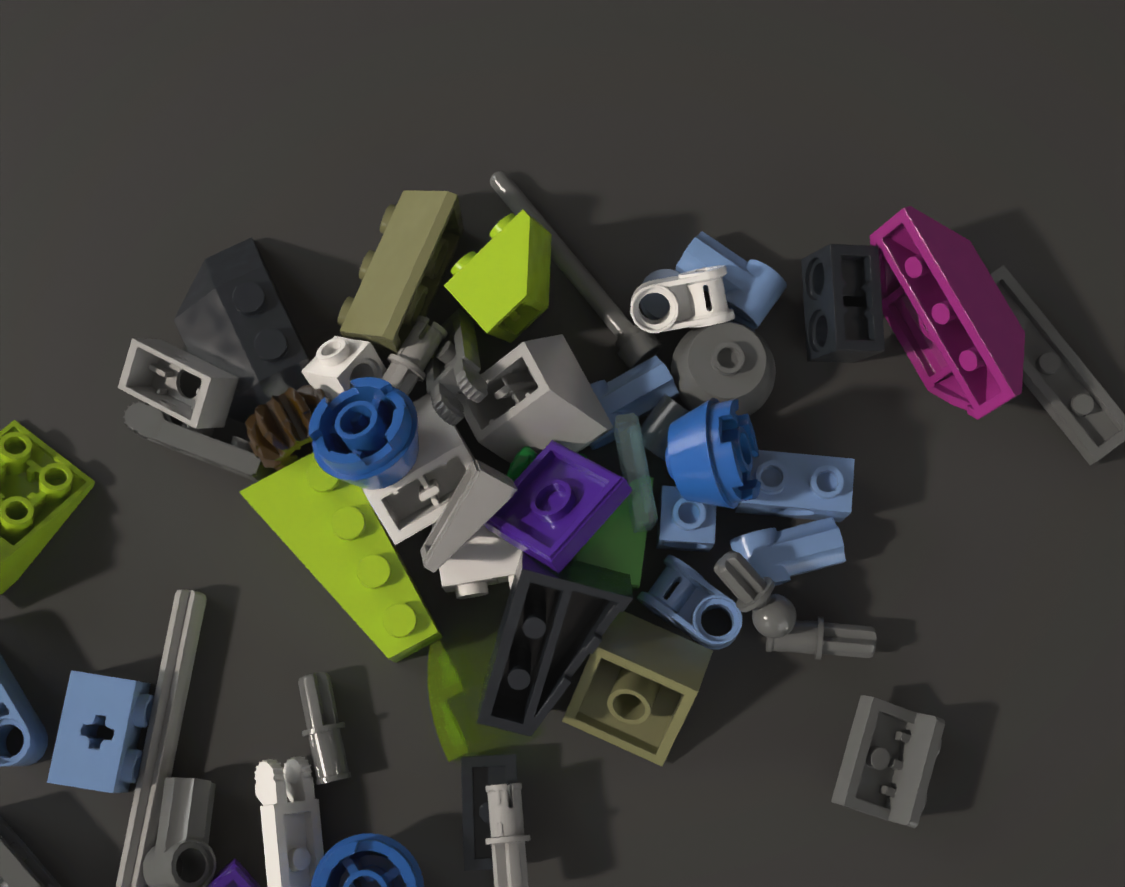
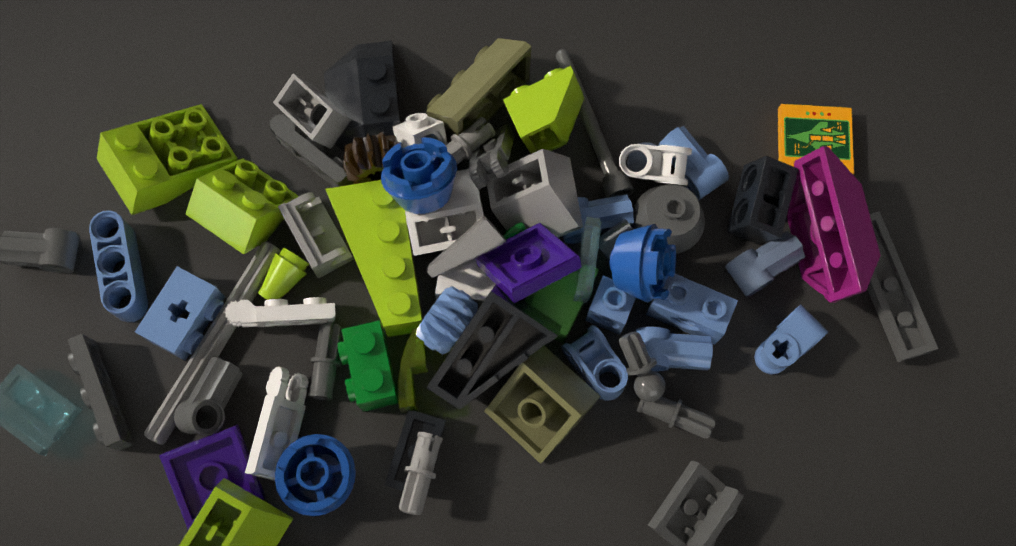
camera: 15 degrees right, 5 degrees down
(126, 548) = (239, 204): none -> lime slope
(221, 628) = (283, 274): none -> lime cone
(236, 685) = (279, 313): none -> white hinge
(245, 555) = (316, 234): none -> light grey hinge
(387, 717) = (370, 366): none -> green brick
(473, 621) = (447, 320): none -> medium blue gear
(866, 397) = (758, 267): none -> sand blue piece
(882, 178) = (811, 127): none -> tile
(943, 480) = (792, 339): none -> medium blue piece

